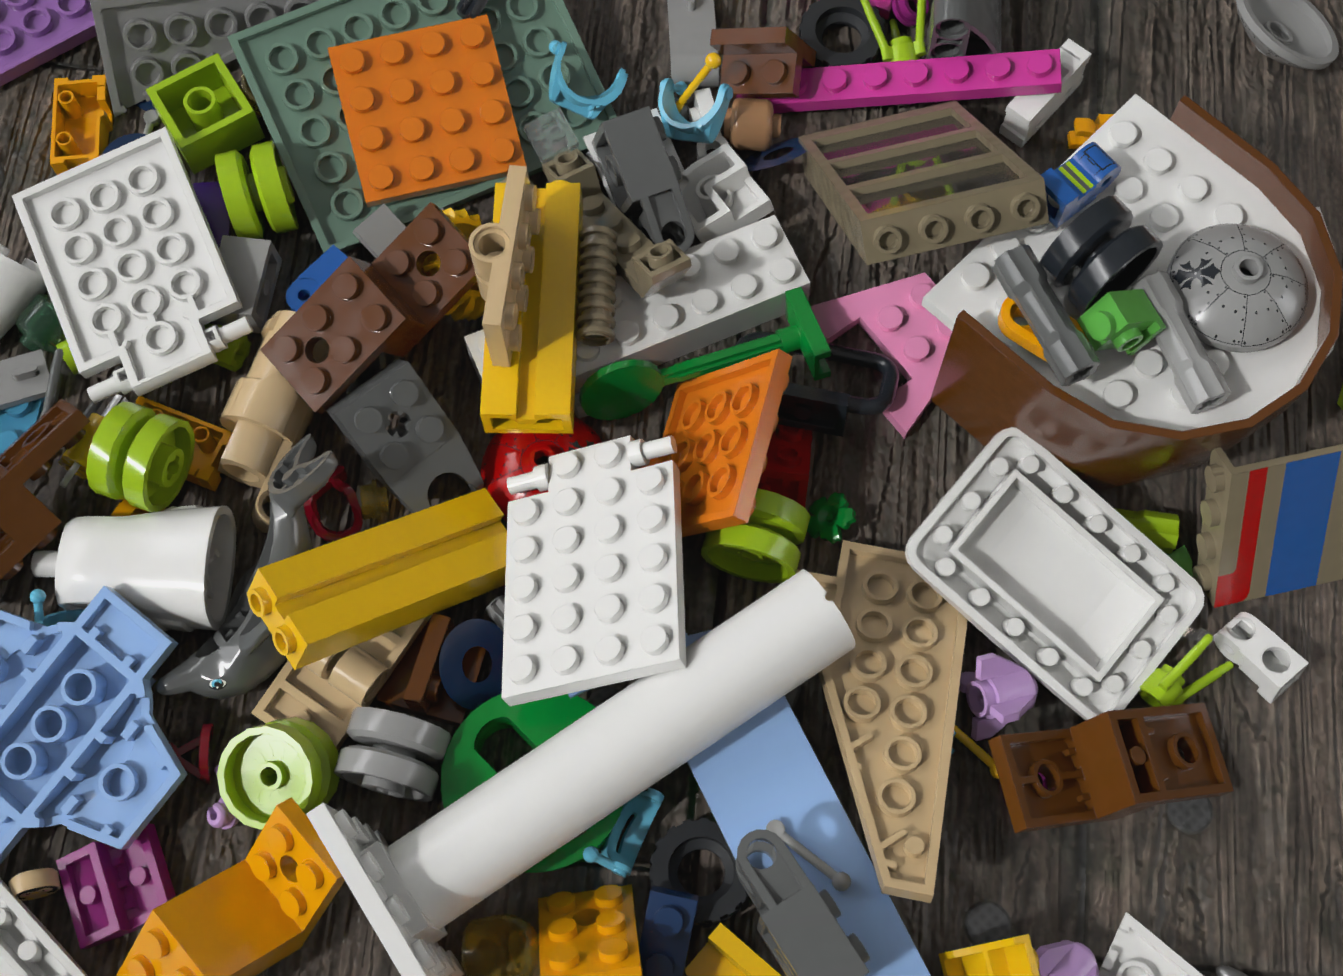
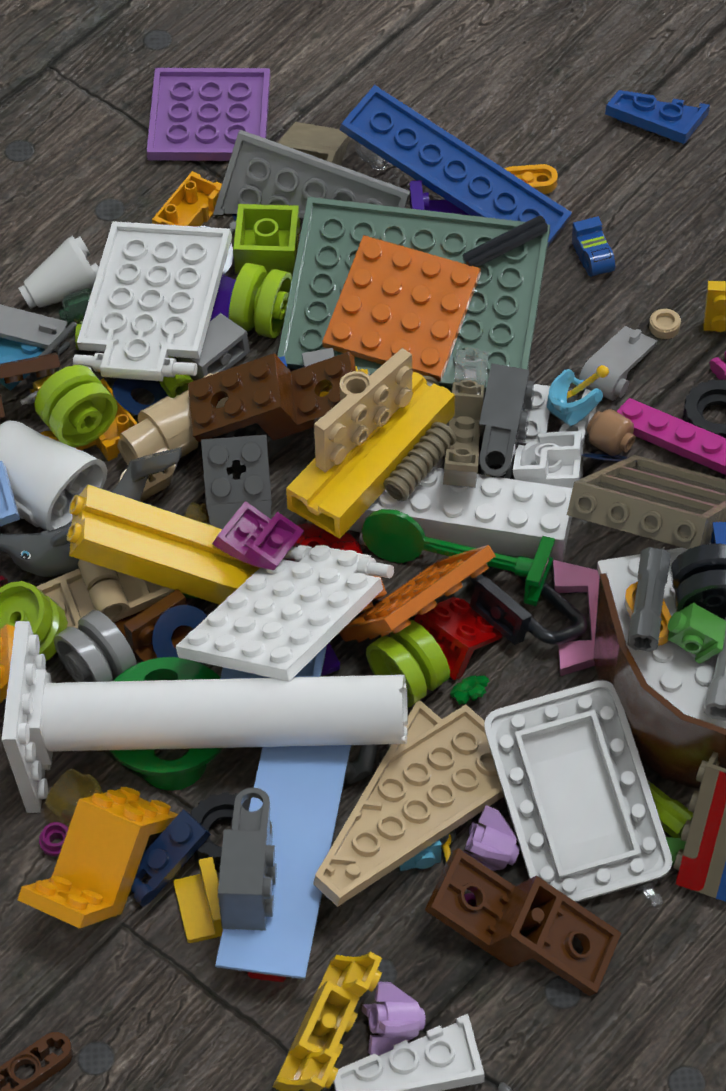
camera: 35 degrees right, 15 degrees down
(175, 401) = (122, 393): none -> dark blue piece
(312, 514) = (180, 490): dark red piece -> none
(482, 491) = (258, 538): none -> magenta slope
(563, 96) = (495, 344): medium azure helmet -> none
(644, 809) = (220, 774): medium azure helmet -> none
(762, 61) = (643, 393): reddish brown bracket -> none
(840, 880) = (282, 822): light grey hinge -> none
(1166, 683) = (605, 908): lime plant -> none
(1260, 655) = (682, 931): white leg -> none

